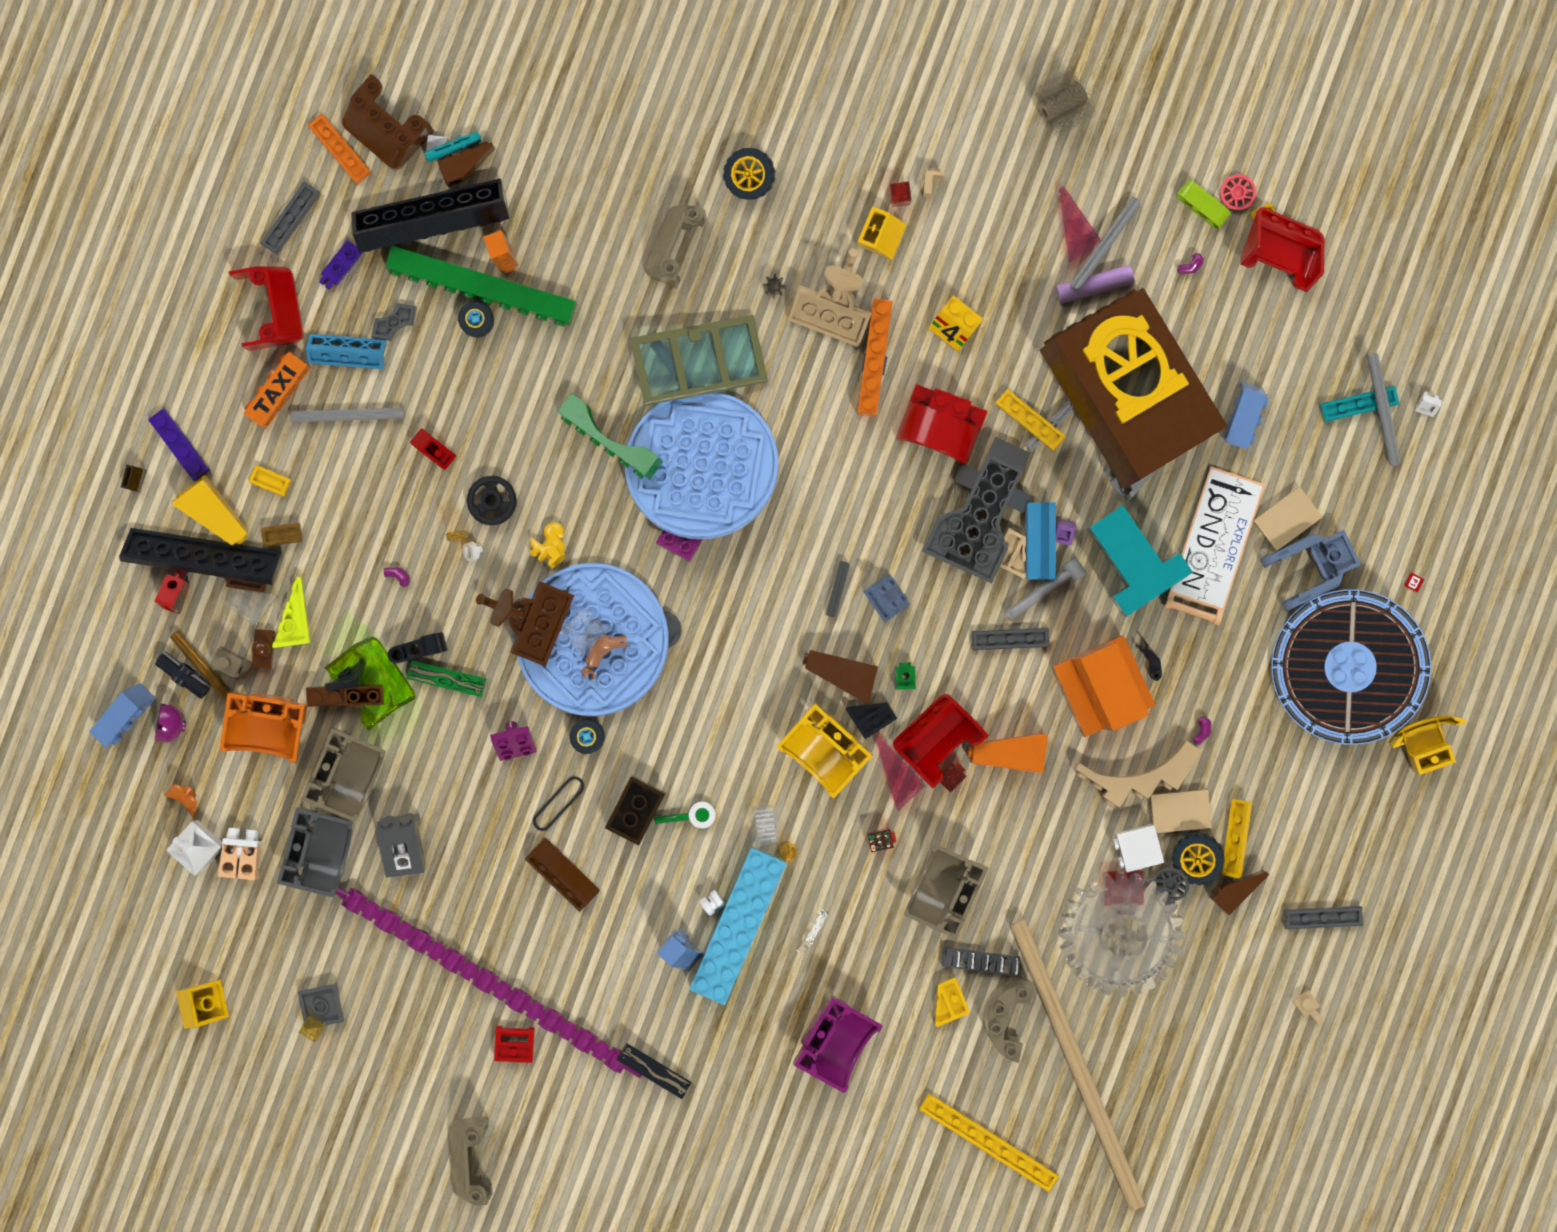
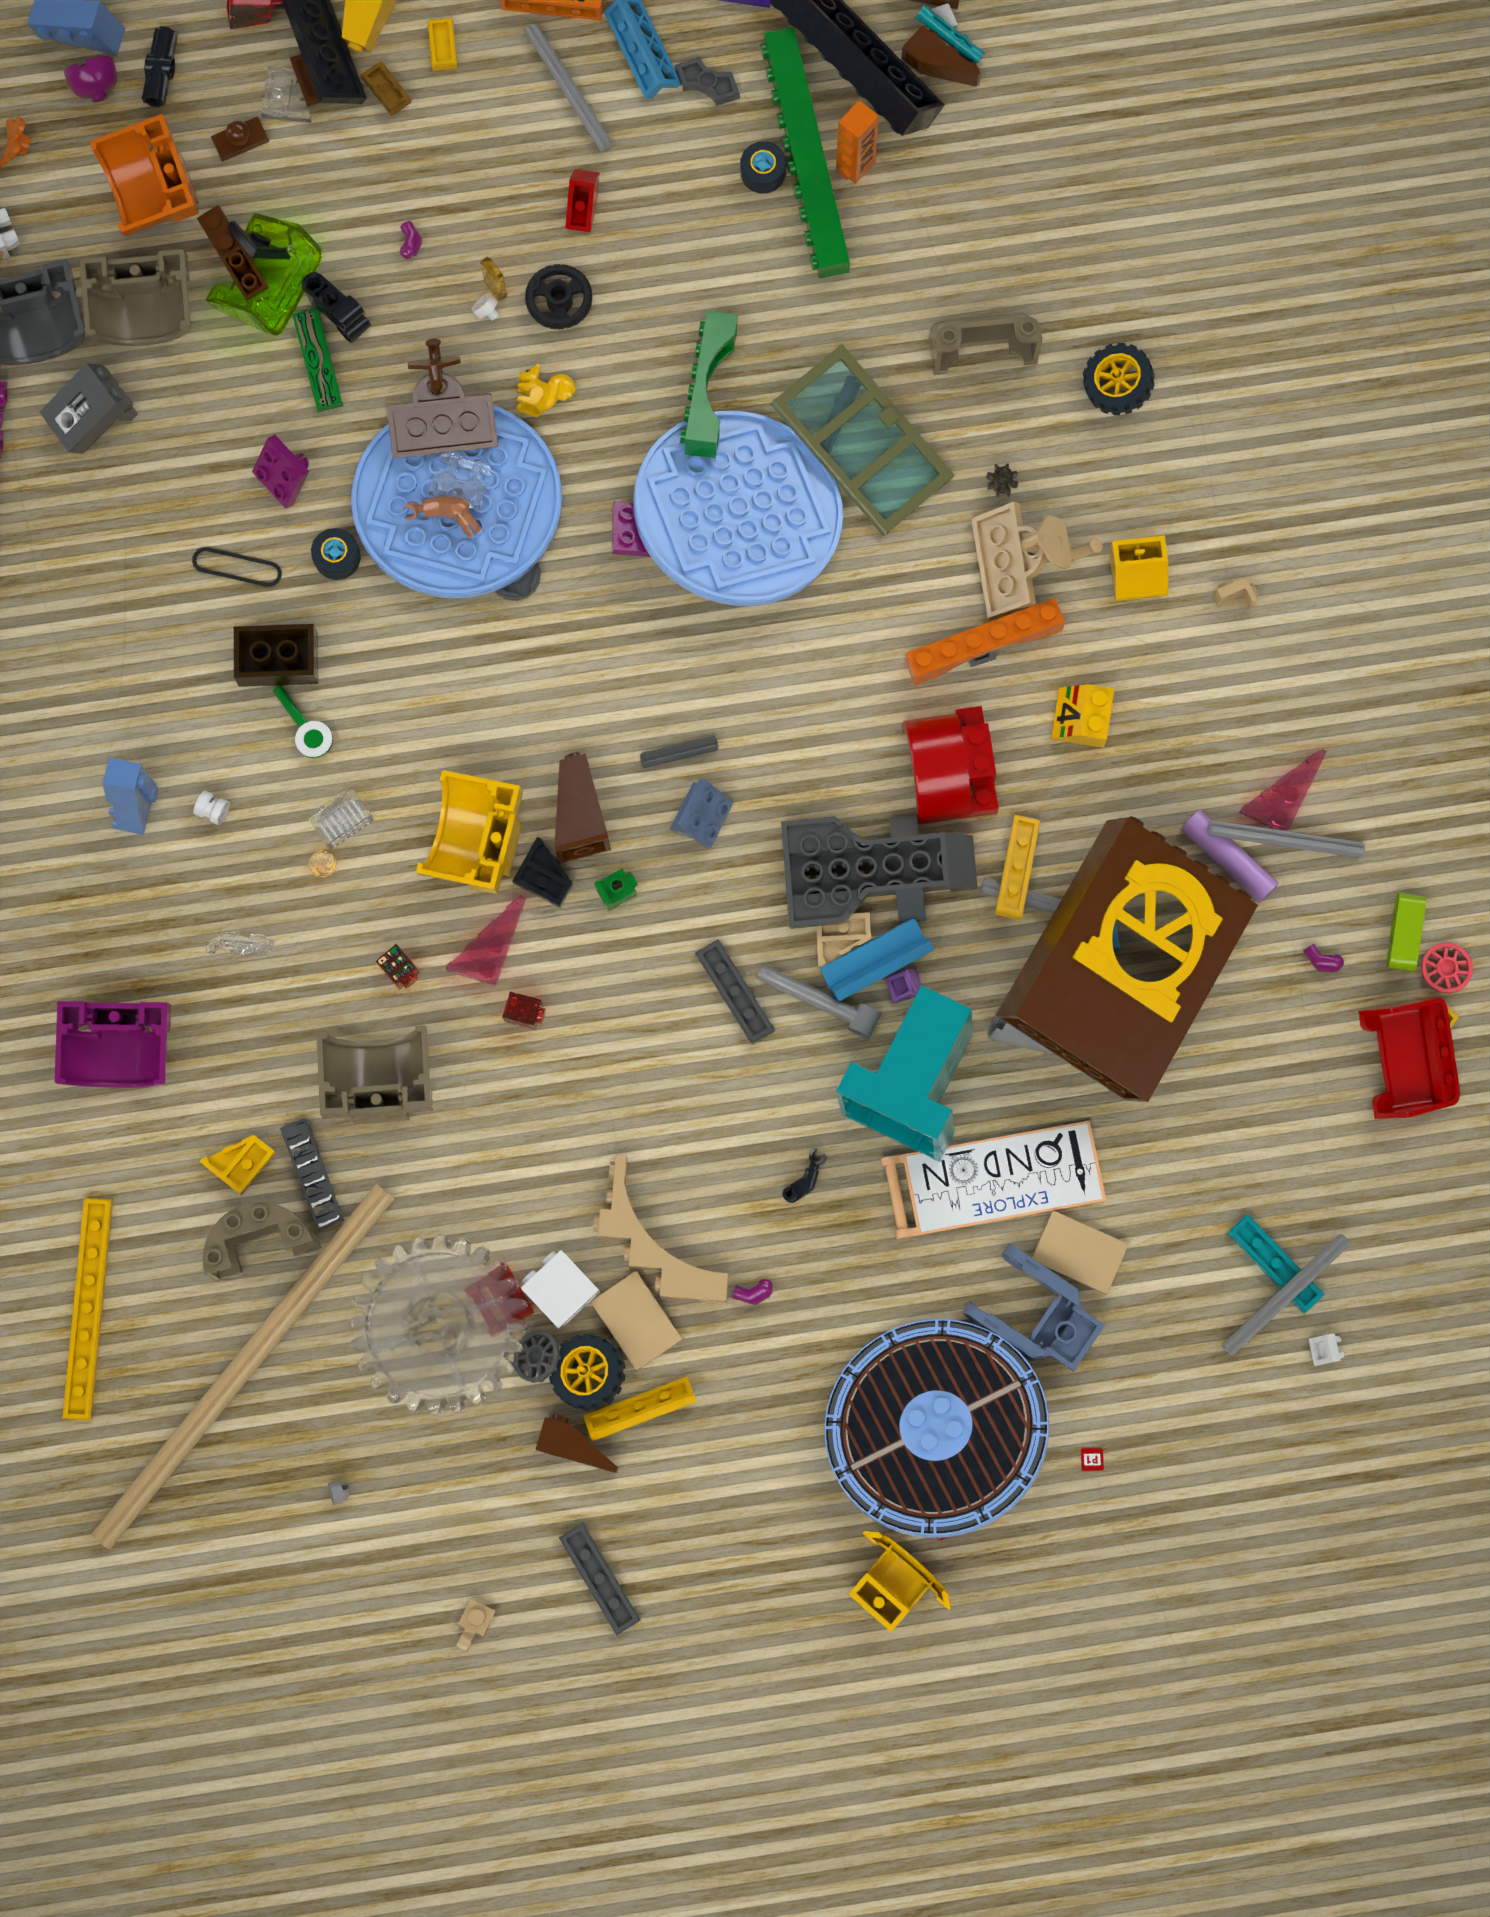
camera: 60 degrees right, 10 degrees down
(200, 664) = (184, 76): pearl gold axle -> none
(230, 663) = (202, 102): dark tan torso -> none
(294, 625) = (289, 156): neon yellow wing -> none
(562, 874) = (152, 614): reddish brown panel -> none
(738, 925) = (199, 852): medium azure brick -> none
(900, 194) = (1199, 565): clear red brick -> none
(937, 735) = (560, 963): red windscreen -> none
(1017, 752) = (596, 1071): orange slope -> none
(1063, 101) = (1426, 690): dark tan piece -> none
(1104, 687) = (741, 1131): orange piece -> none
(1187, 1049) = (338, 1491): none -> light grey hinge
(1246, 415) = (1176, 1125): medium blue wedge -> none

